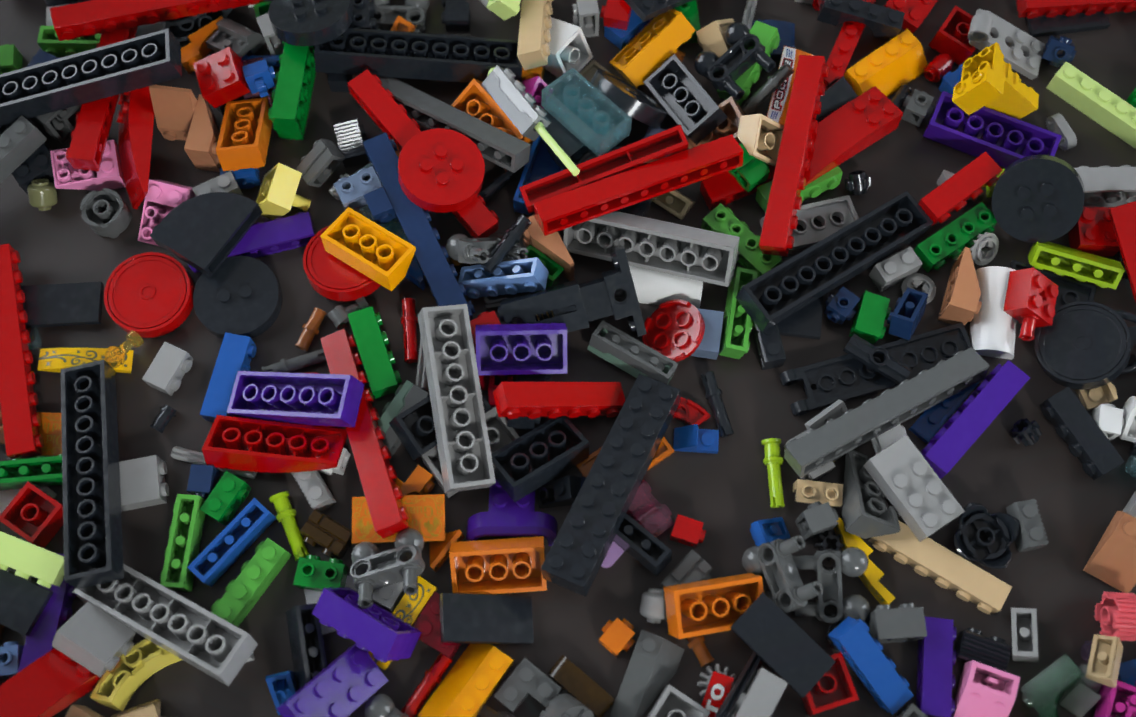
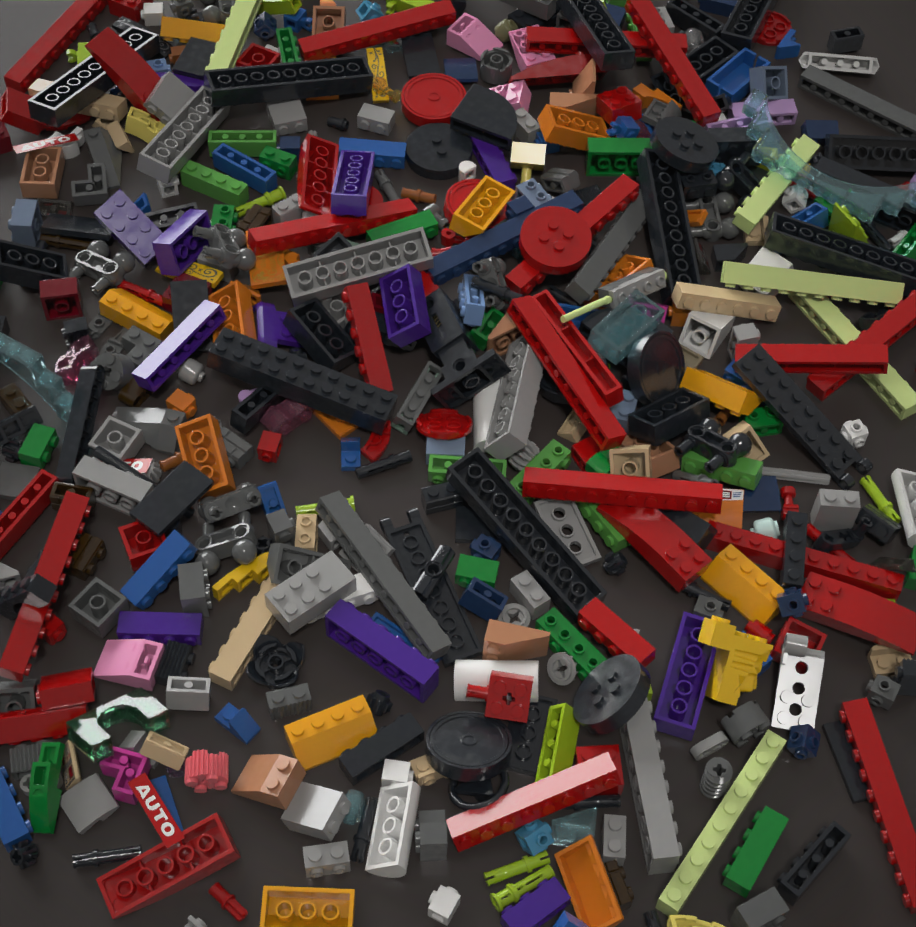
camera: 80 degrees right, 15 degrees down
(47, 234) = (471, 36): none -> bright pink slope
(97, 257) = (461, 69): none -> dark blue slope
(281, 269) = (467, 170): none -> white brick
(385, 300) = (449, 238): none -> red leg
(543, 632) = (179, 345): none -> dark purple brick
(565, 624) = (191, 371): none -> light grey head
(795, 15) = (788, 494): none -> red leg
(821, 40) = (766, 527): none -> light aqua head
(927, 24) = (788, 608): none -> dark blue brick
(1047, 585) = (238, 723): none -> blue slope
(1051, 90) = (745, 723): none -> dark grey brick
(1059, 485) = (330, 732): none -> light orange slope
(1104, 128) = (716, 778): none -> dark grey piece

